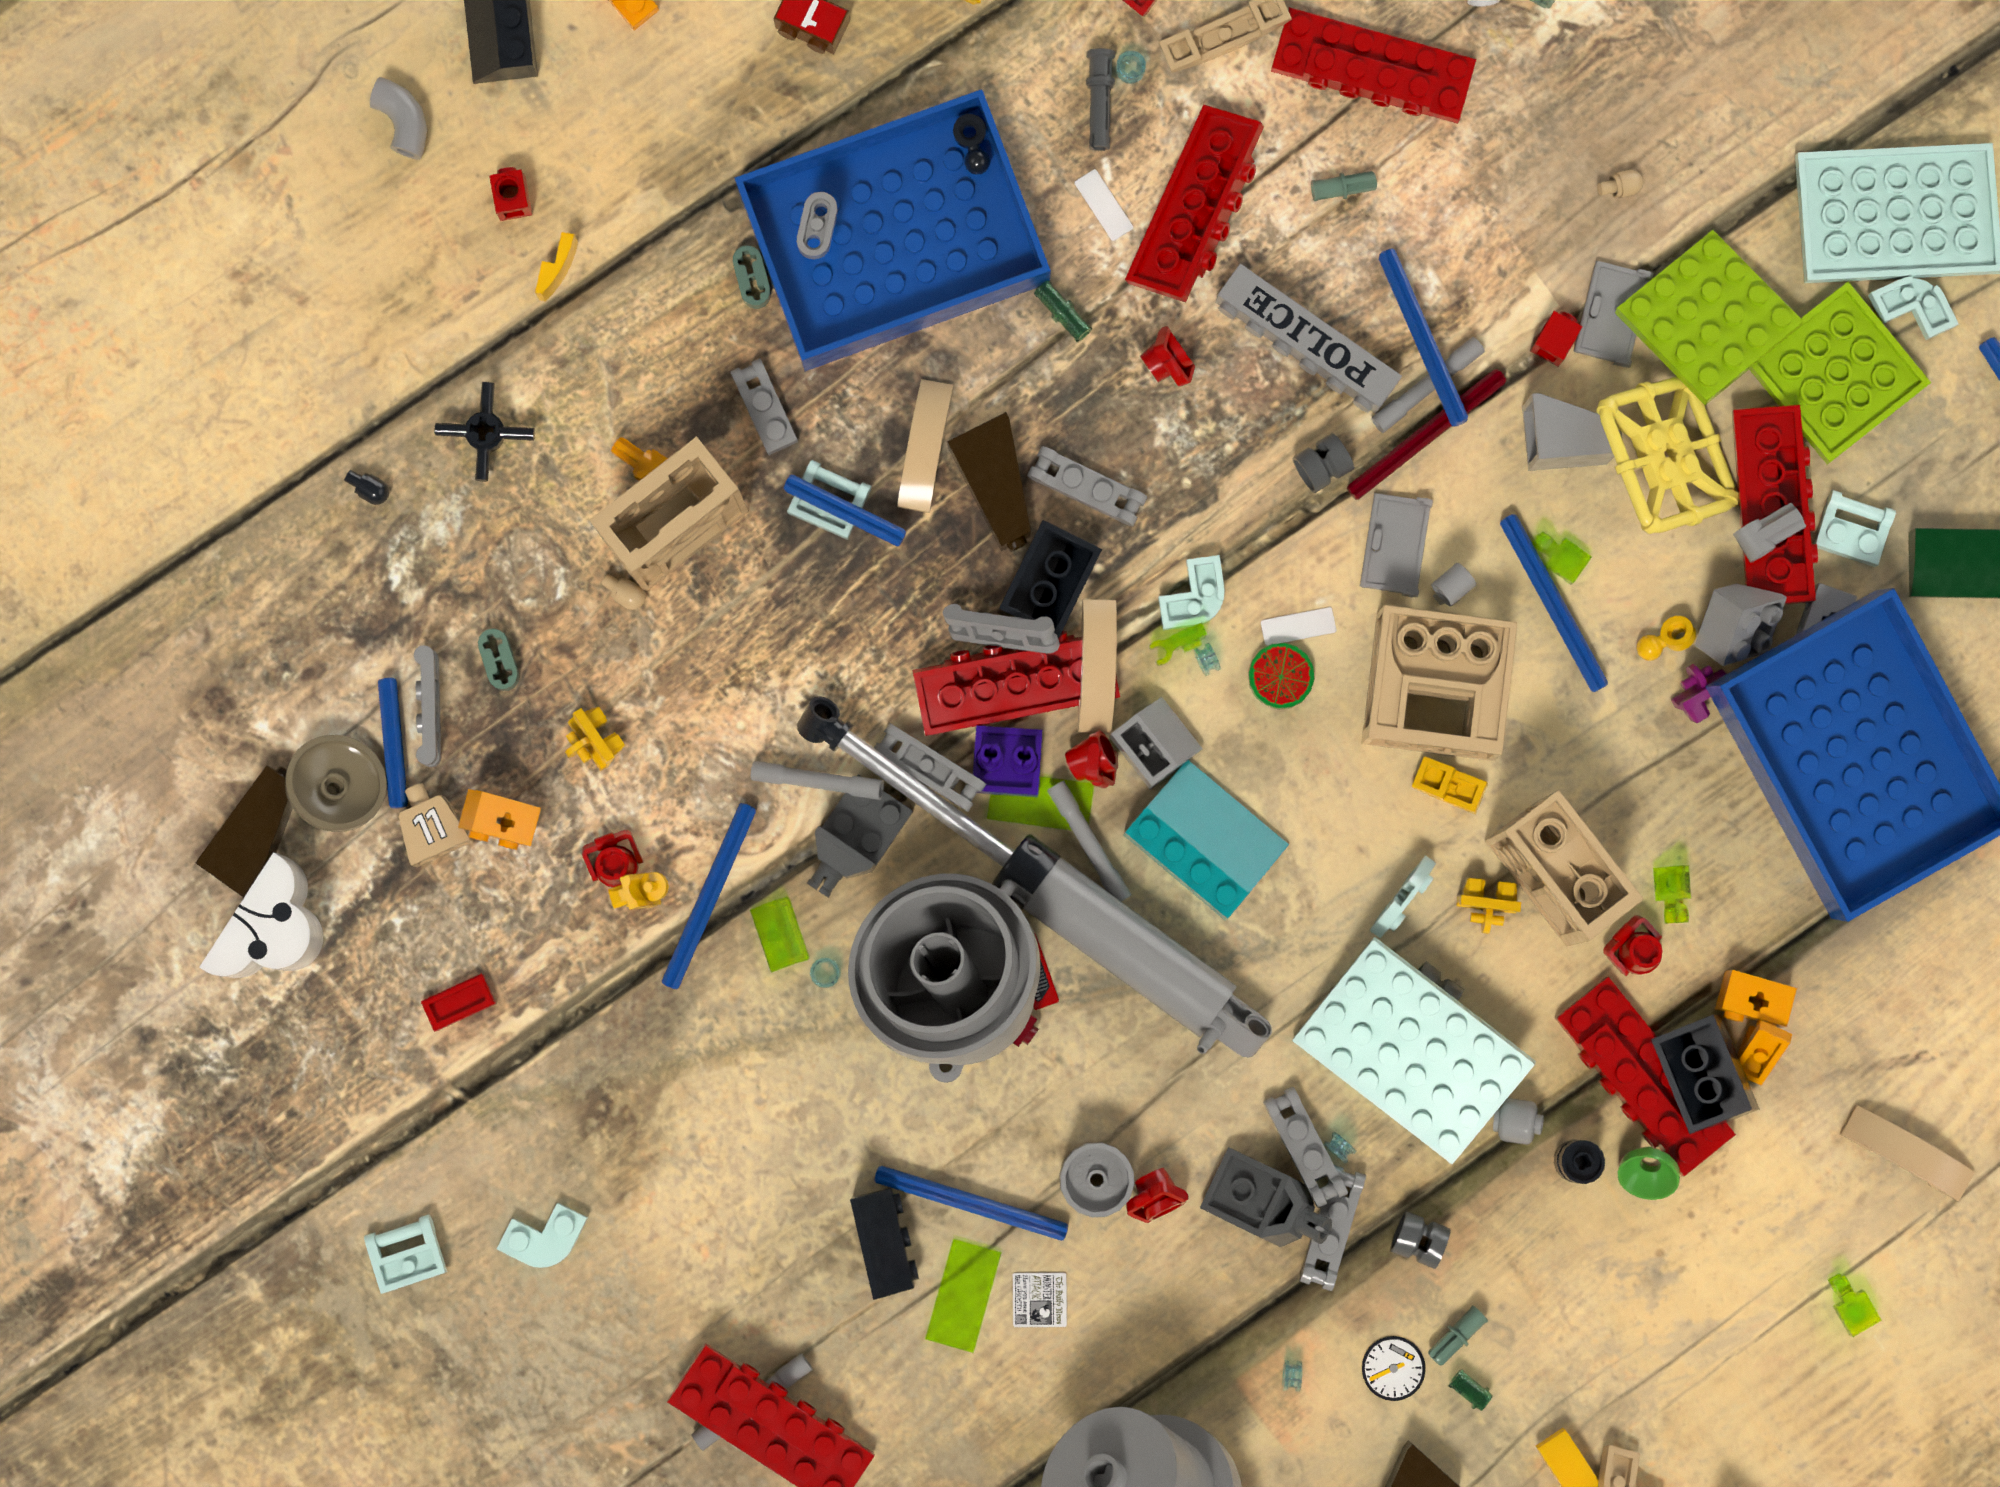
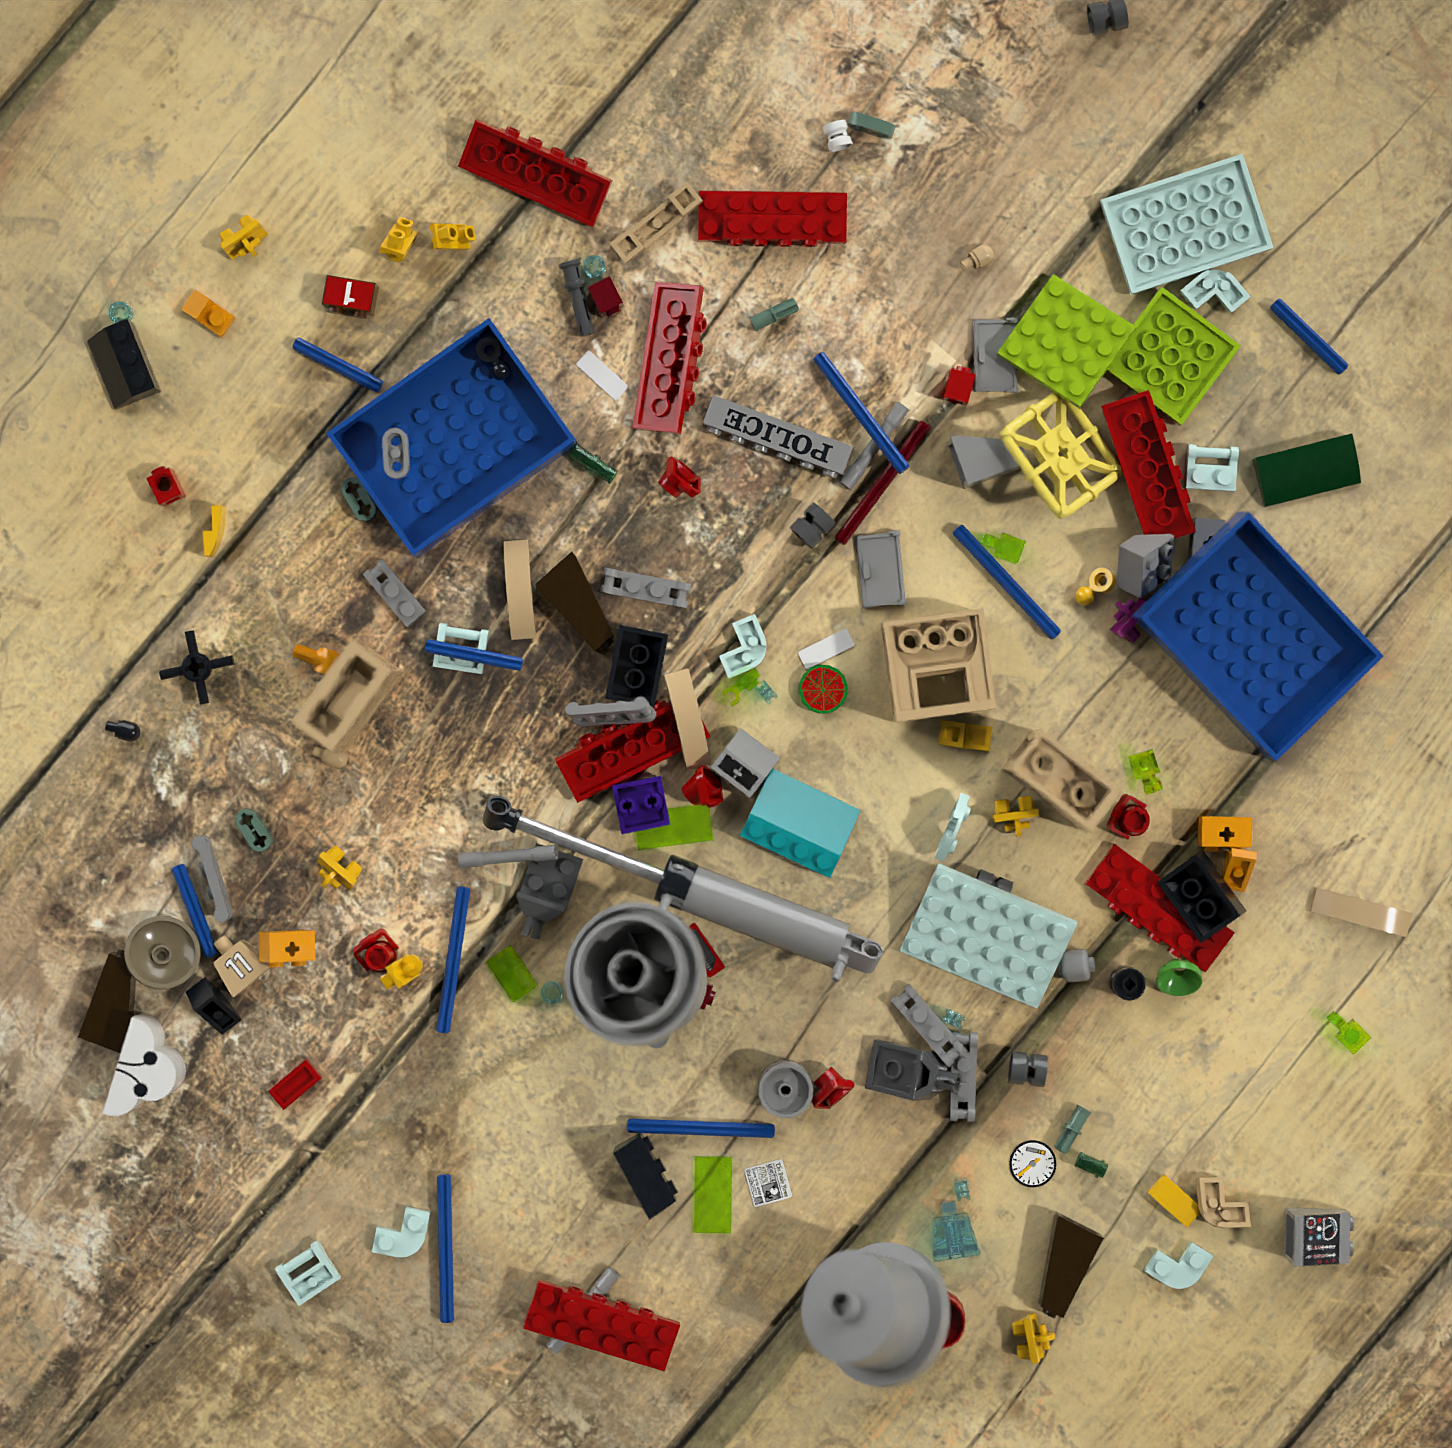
camera: 15 degrees left, 5 degrees up
(381, 871) = (212, 1006): none -> black slope
(405, 114) = (73, 449): light grey cylinder -> none
(594, 1271) = (445, 1248): none -> blue axle
(771, 101) = (337, 364): none -> blue axle
(930, 767) = (586, 825): light grey plate -> none
(1070, 810) = (736, 867): light grey piece -> none
(1136, 107) = (606, 297): none -> dark red brick
(1265, 1432) = (952, 1234): none -> clear light blue torso
(1453, 585) = (929, 592): light grey piece -> none
(1762, 535) = (1145, 494): light grey piece -> none

